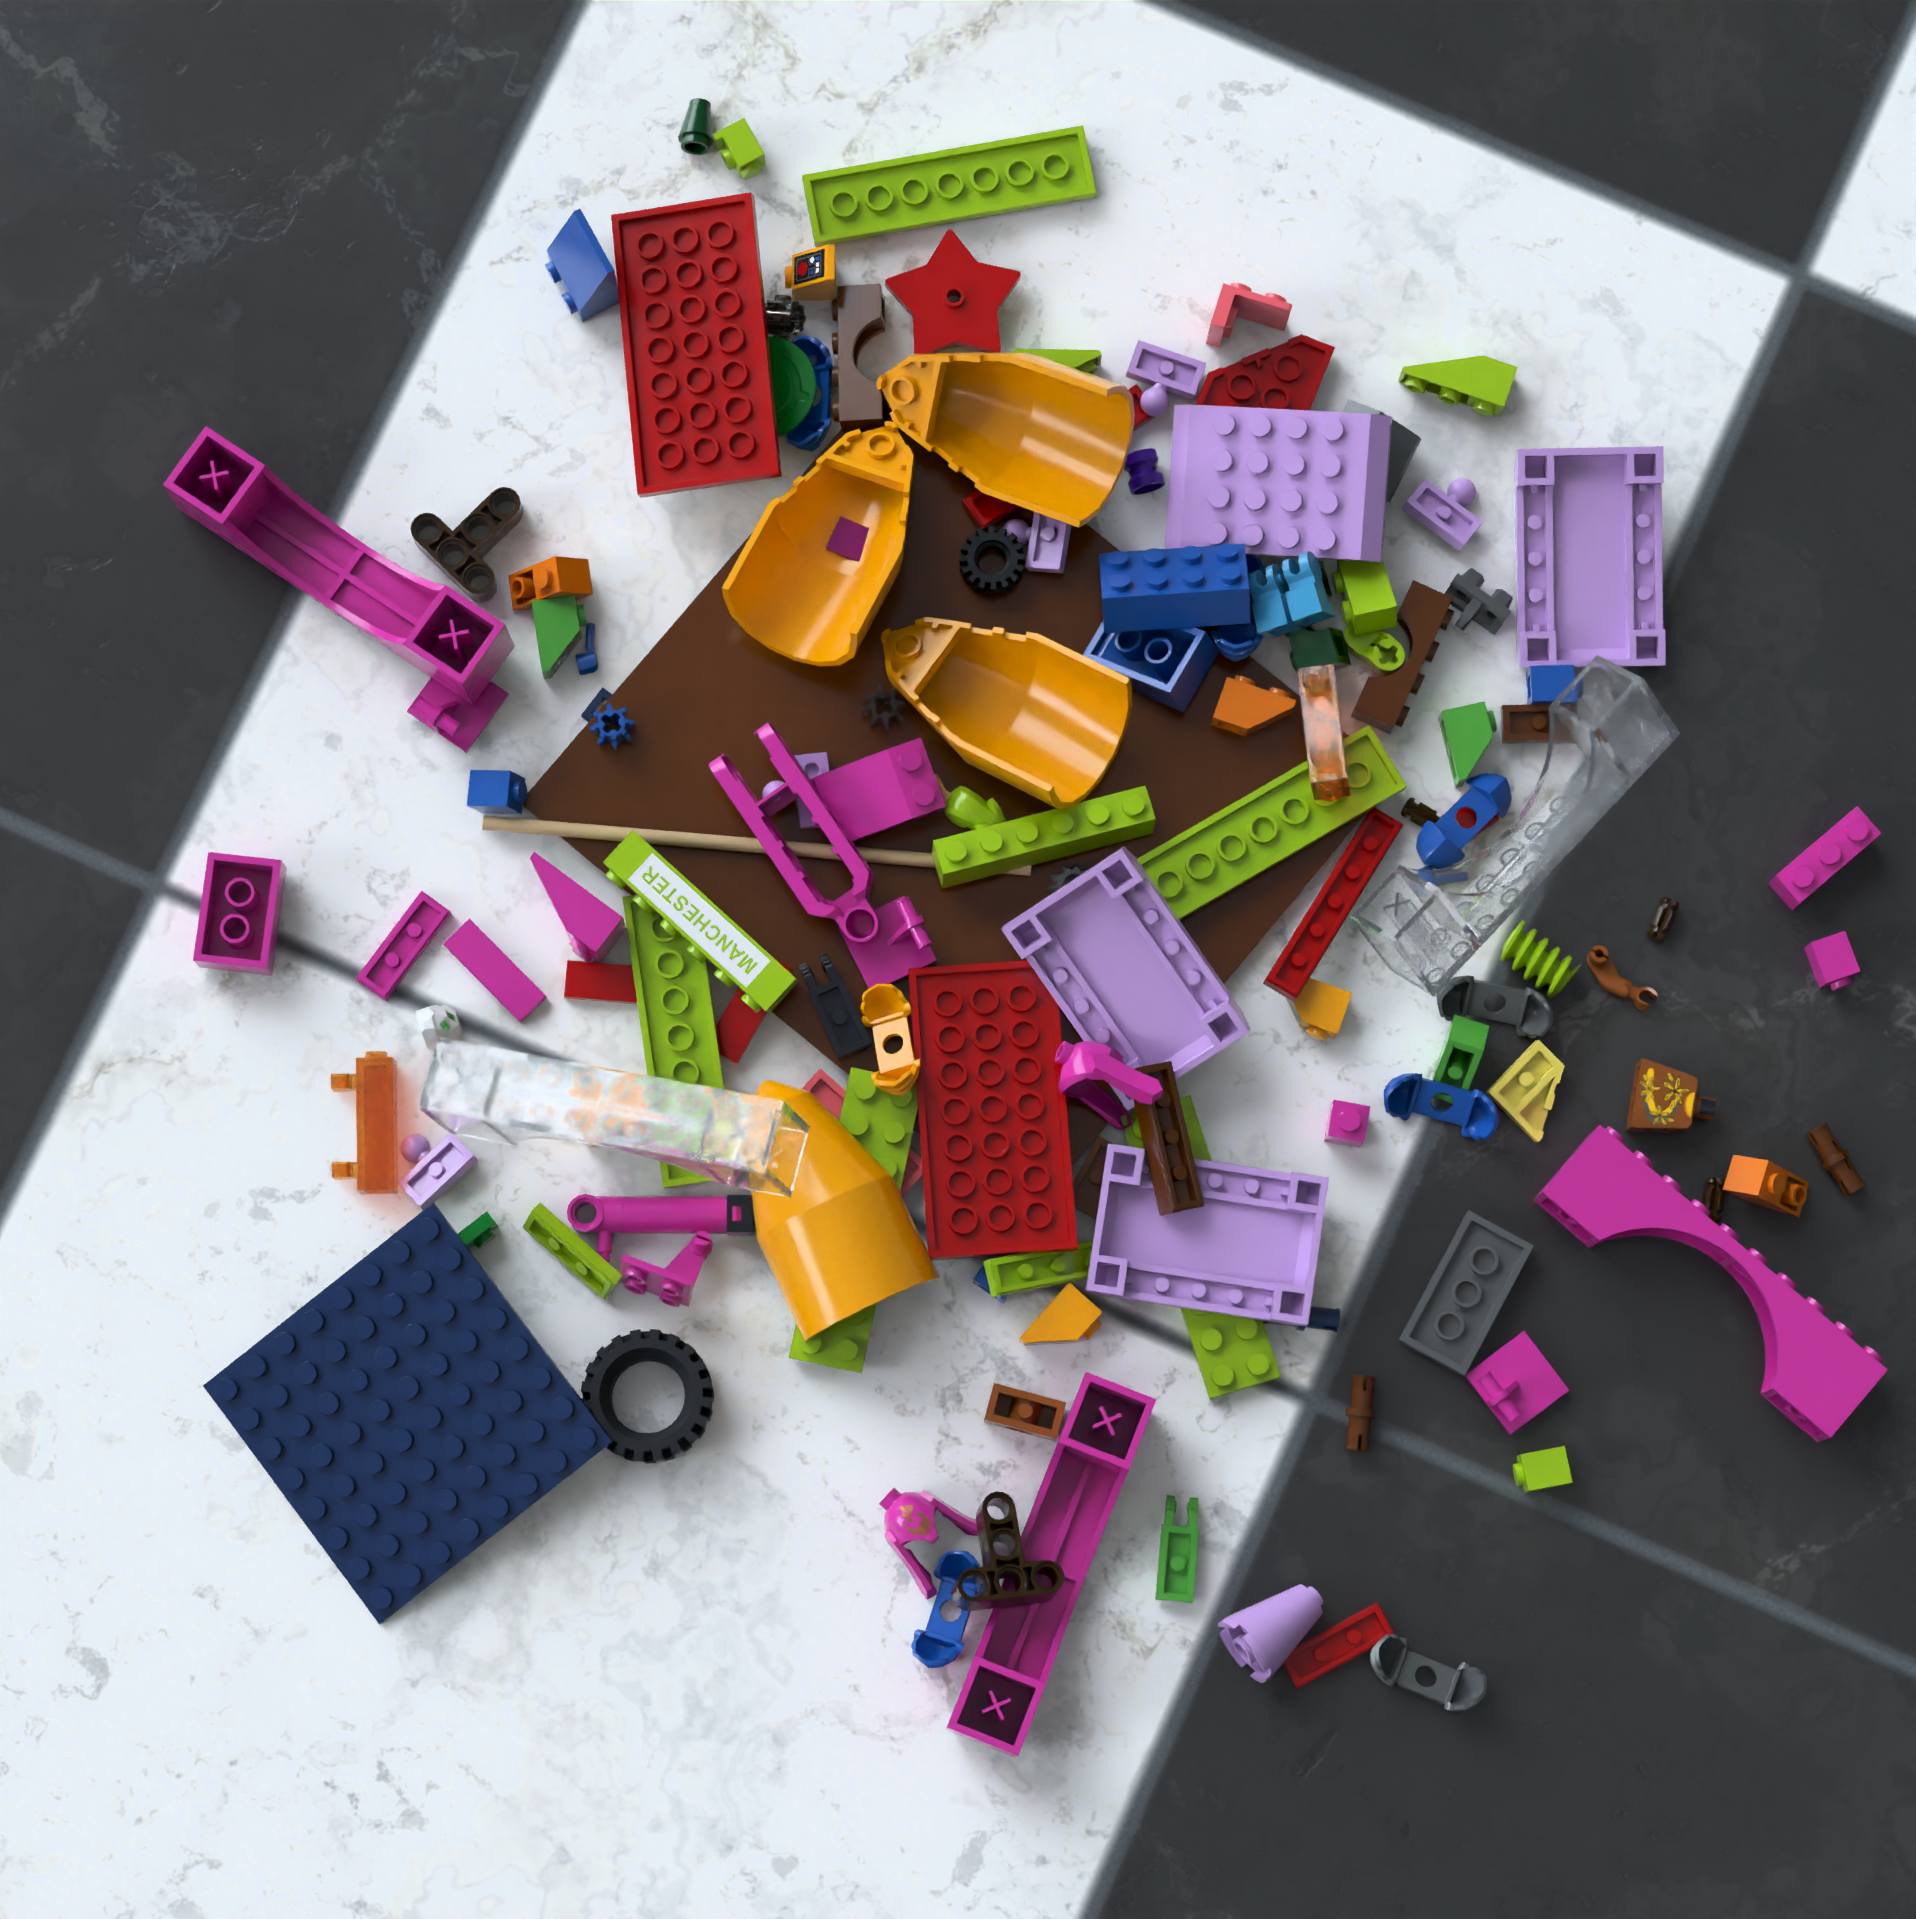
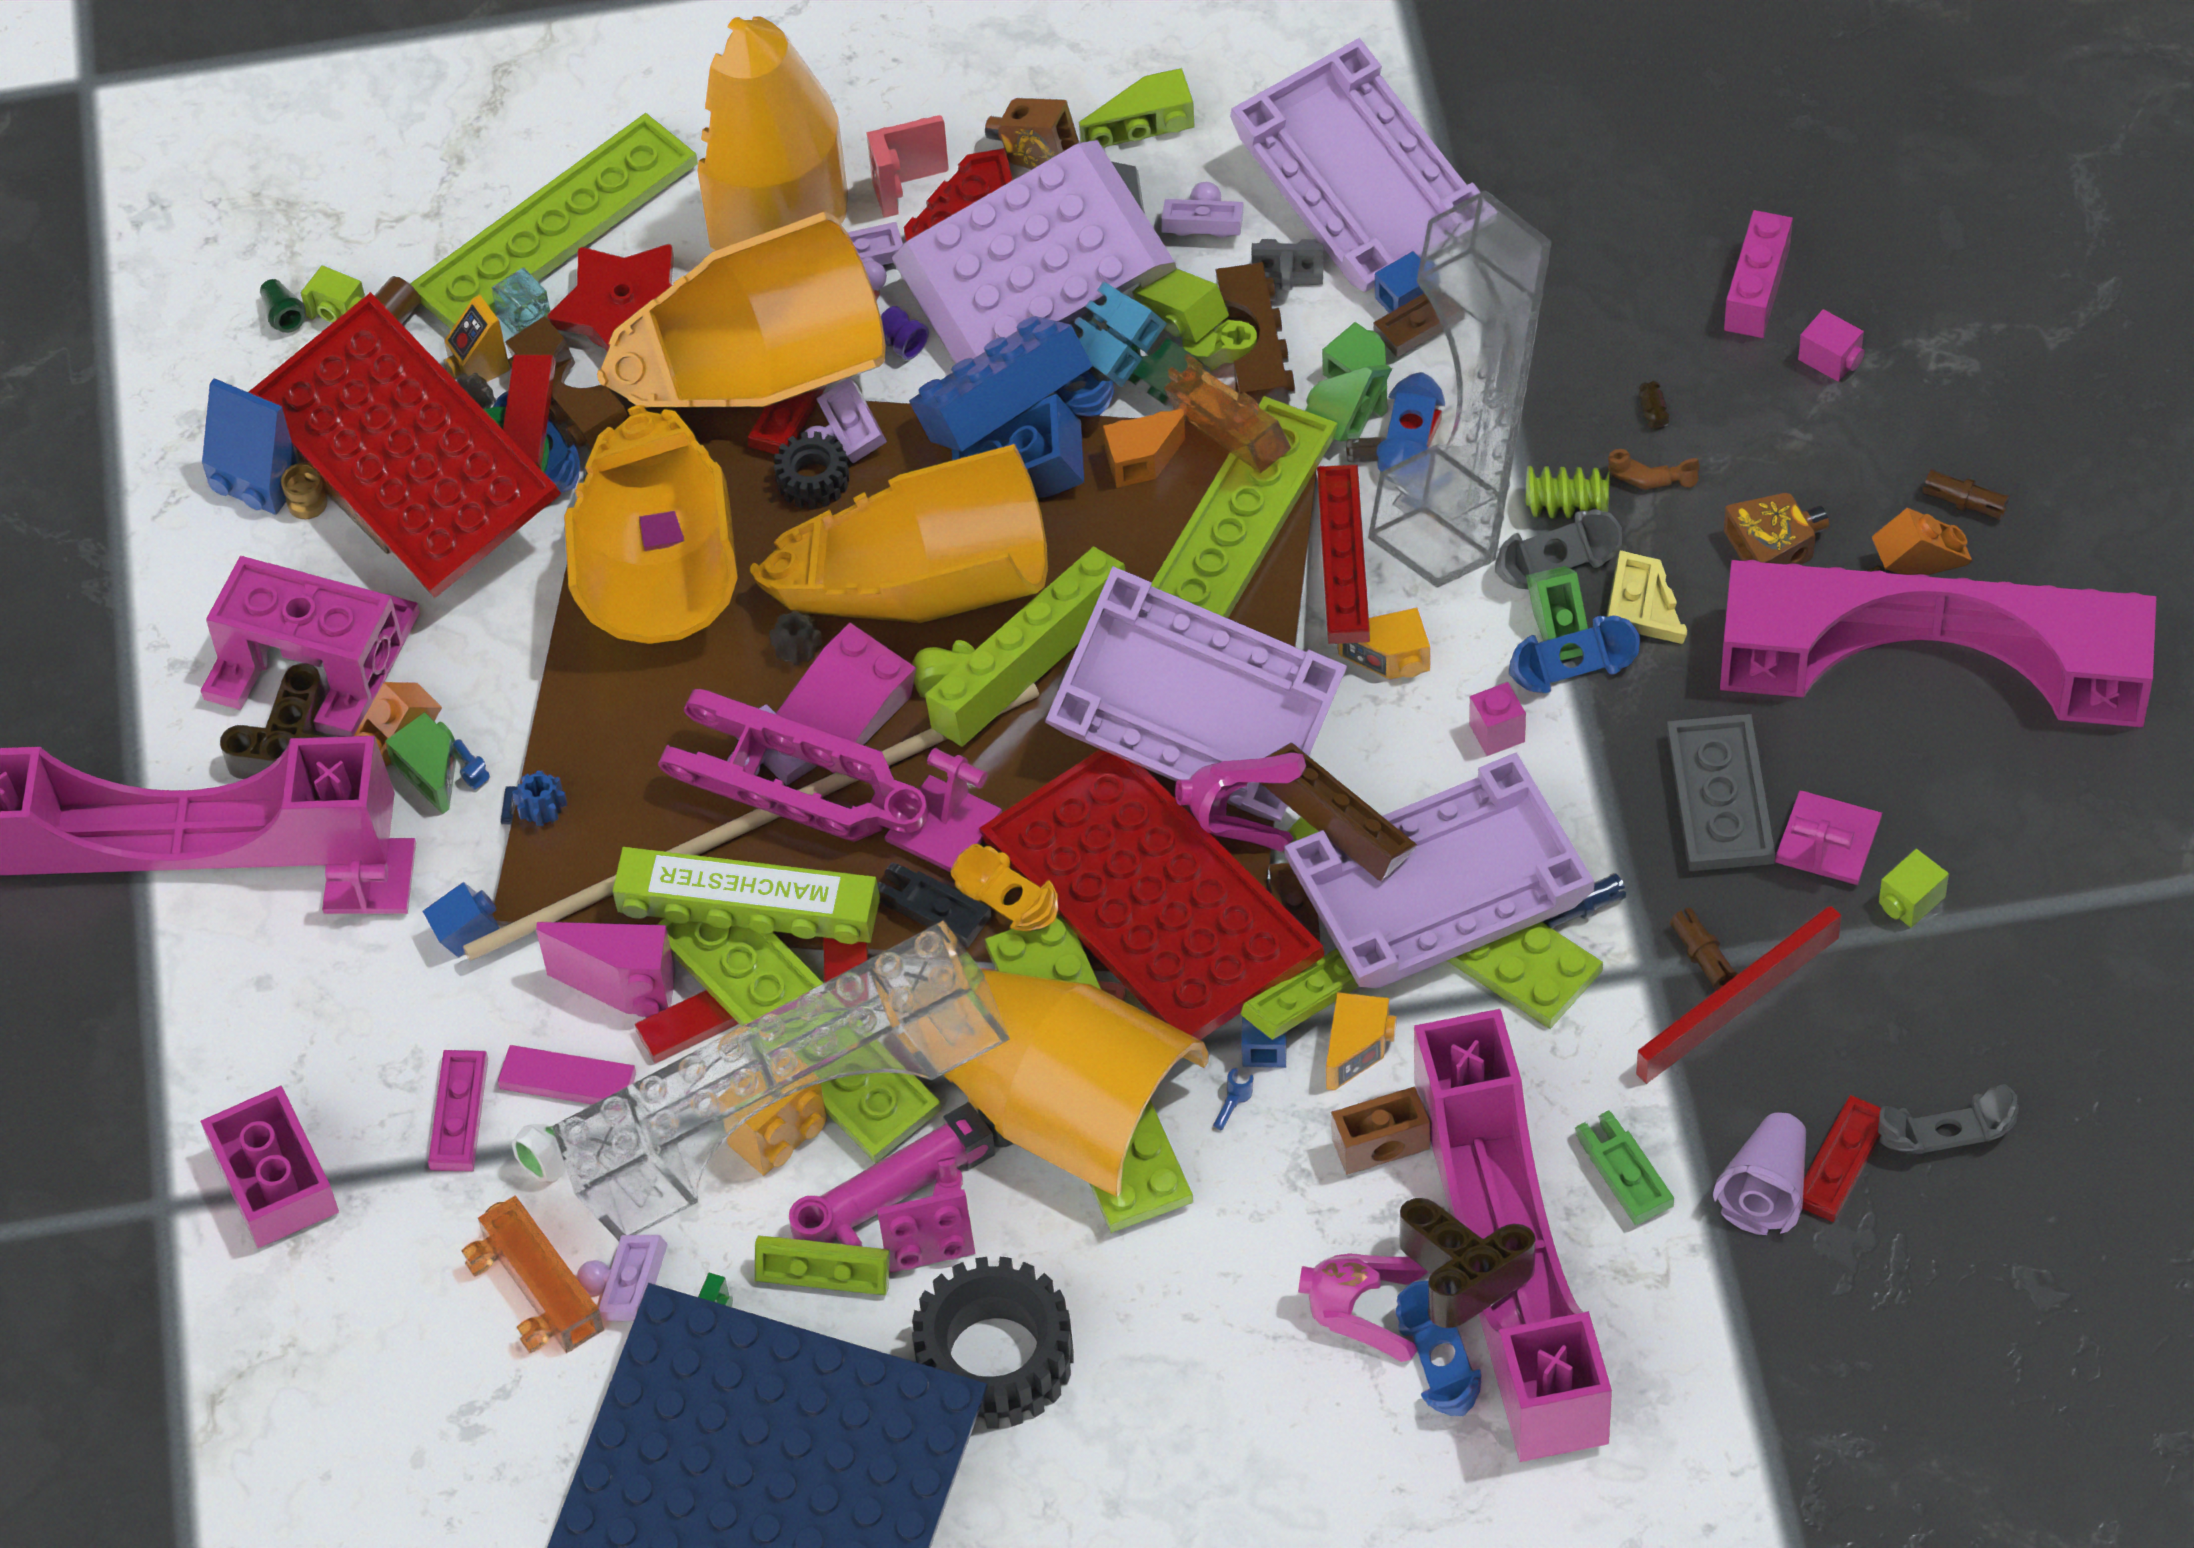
camera: 25 degrees left, 25 degrees down
(553, 491) = (312, 623): none -> dark pink piece
(607, 315) = (304, 491): none -> pearl gold wheel
(776, 186) = (398, 298): none -> reddish brown brick
(812, 369) = (530, 403): none -> red tile
(875, 251) = (520, 300): none -> clear light blue brick
(944, 1307) = (1235, 1094): none -> blue hand
(1135, 263) = (768, 139): none -> light orange windscreen
(1357, 1469) = (1738, 994): none -> red tile
(1364, 354) = (1033, 130): none -> dark orange torso
(1429, 768) = (1349, 399): none -> bright green slope

